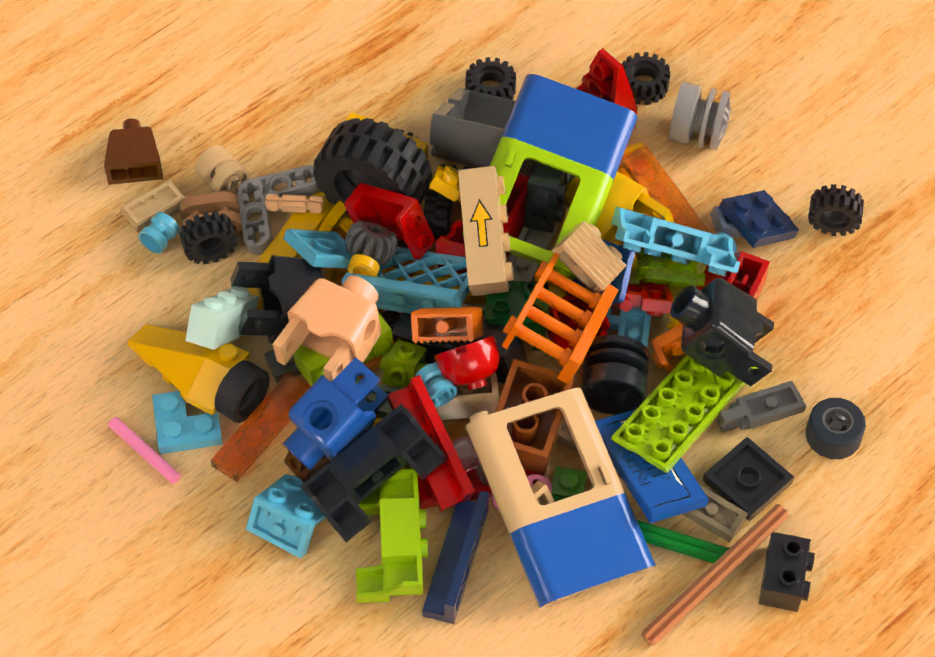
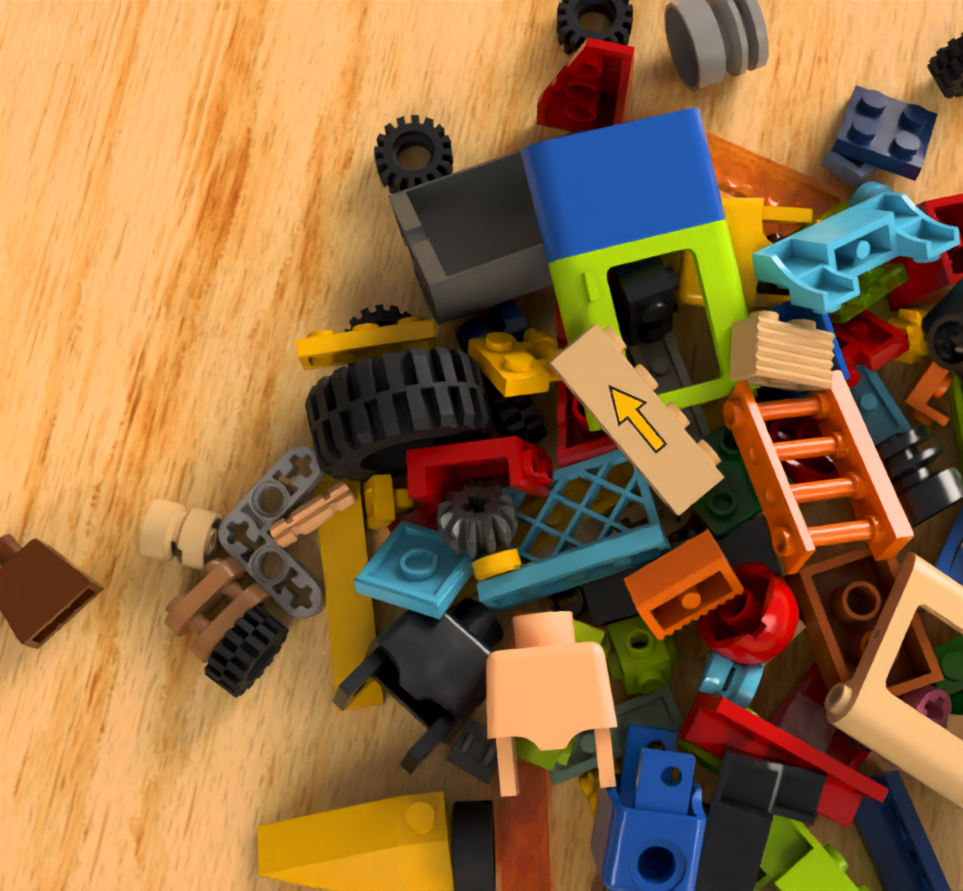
camera: 30 degrees left, 20 degrees up
(159, 232) = (169, 682): medium azure wheel -> none
(163, 199) = (128, 645): tan plate -> none
(218, 317) = (373, 775): light aqua brick -> none

